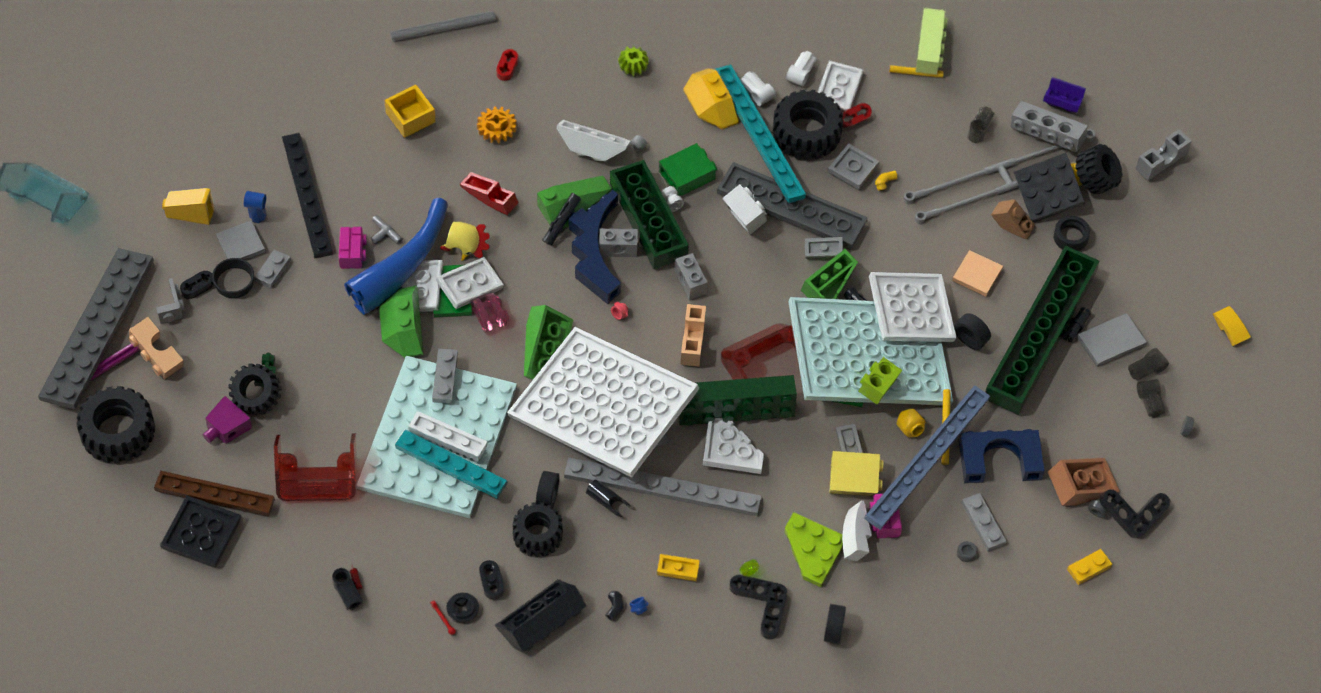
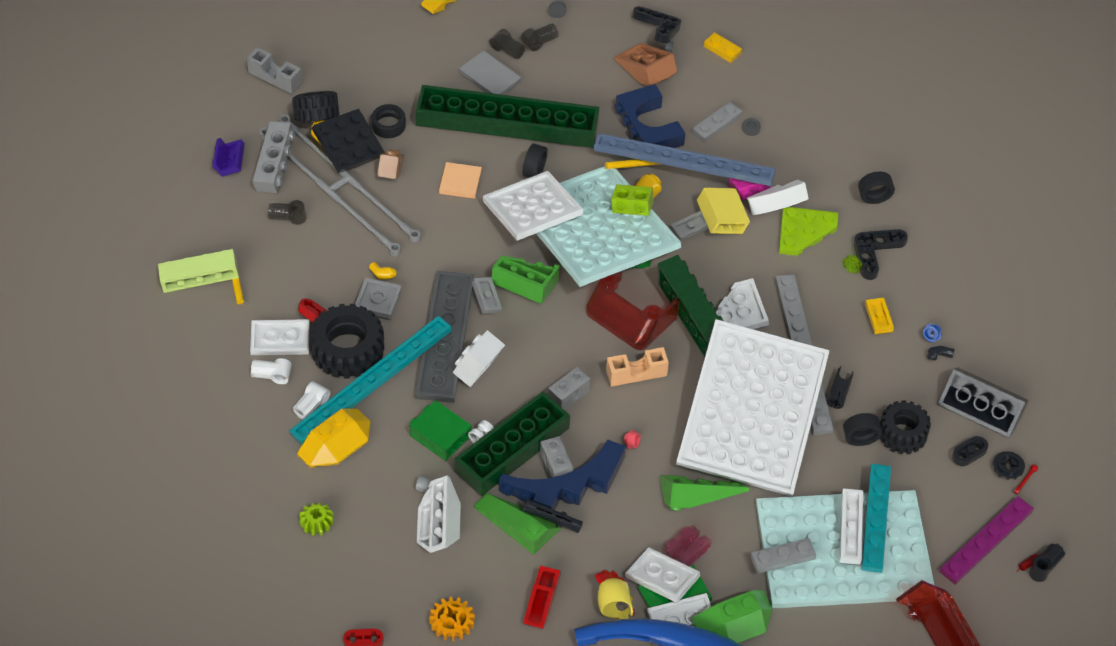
camera: 110 degrees left, 5 degrees down
(394, 555) = (986, 540): none -> magenta plate
(853, 294) = (531, 257): black piece -> none

